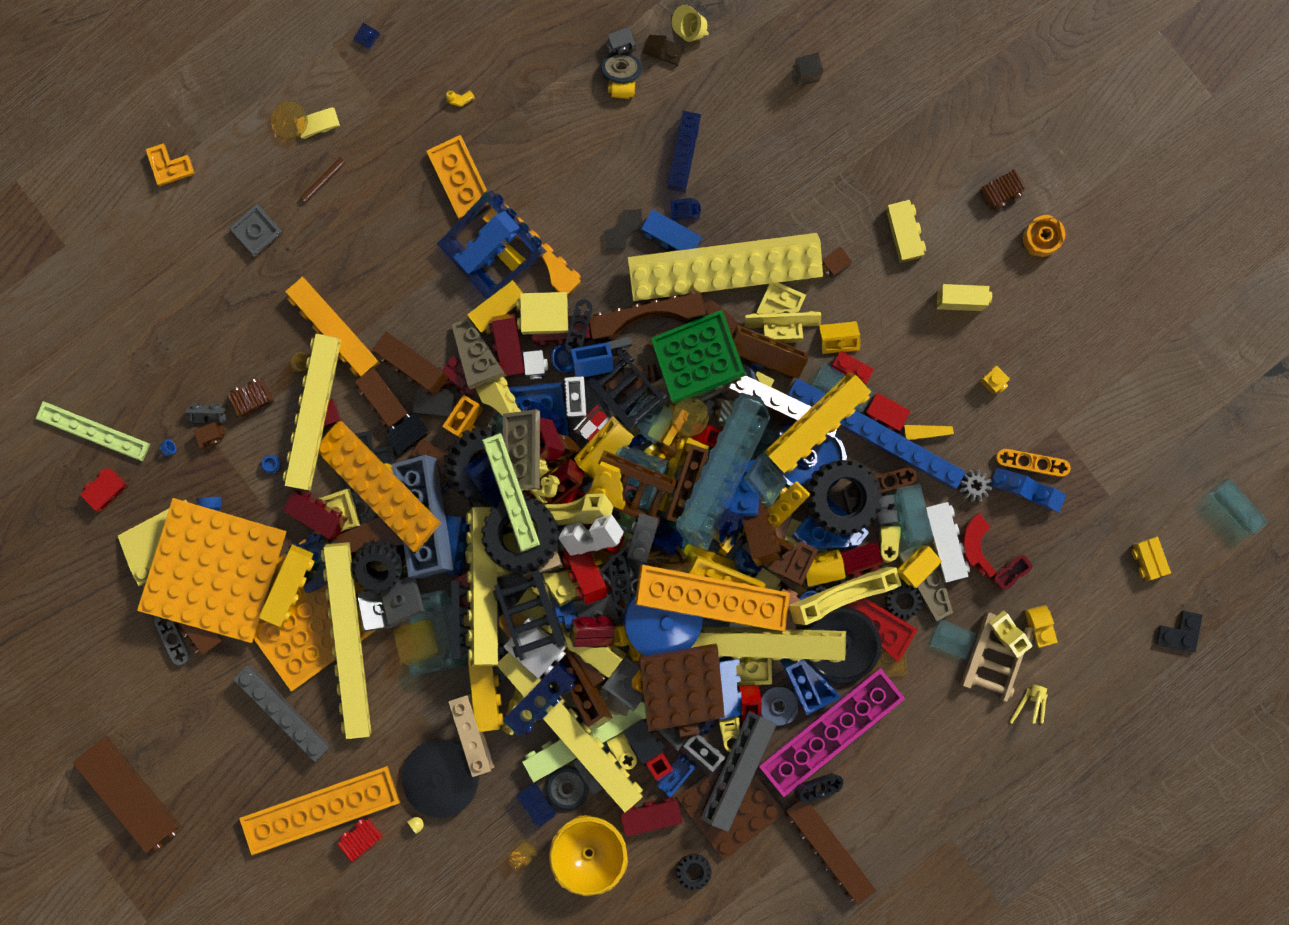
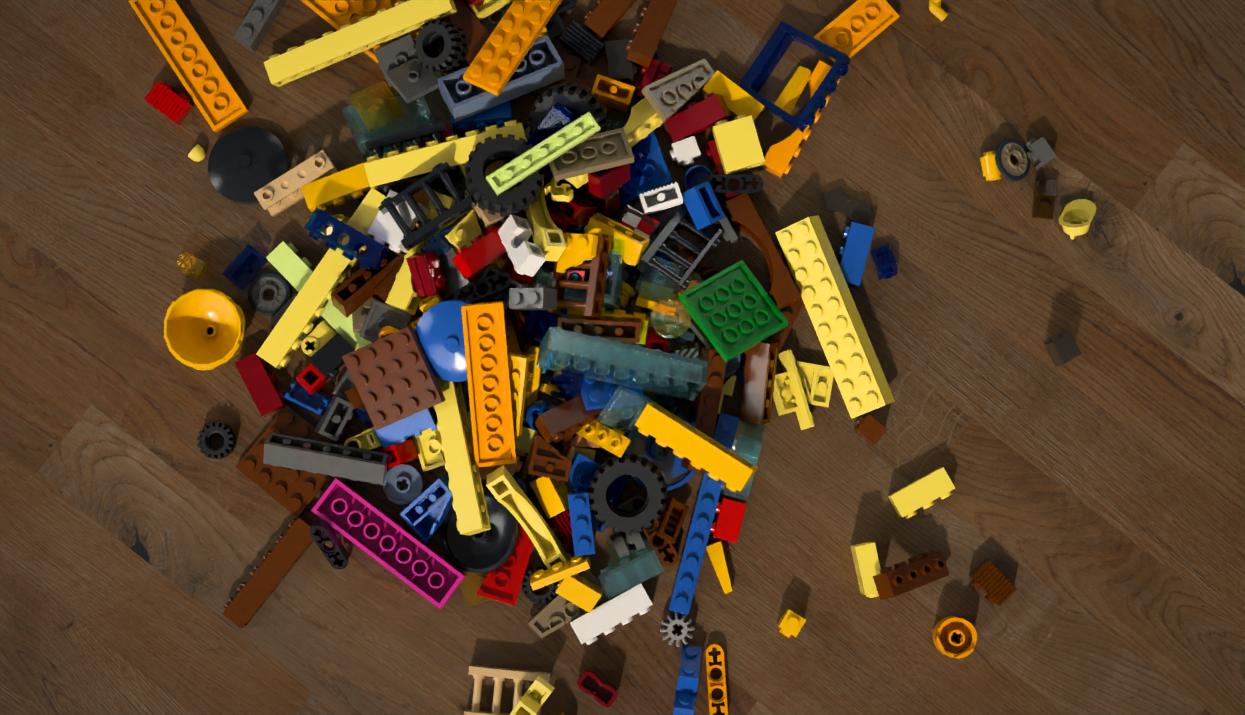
camera: 80 degrees right, 0 degrees up
(488, 243) = (793, 71): blue wedge -> none
(684, 151) = (943, 245): clear blue brick -> none
(839, 337) = (794, 453): yellow panel -> none
(847, 364) = (765, 472): red brick -> none
(858, 547) = (581, 523): none -> blue brick
(872, 456) = (679, 518): none -> reddish brown slope
(889, 539) = (603, 555): light yellow piece -> none
(898, 578) = (559, 571): none -> yellow plate
(953, 639) = (514, 645): clear light blue plate -> none
(971, 541) = (617, 639): red arch -> none
(979, 260) = (910, 575): none -> reddish brown brick

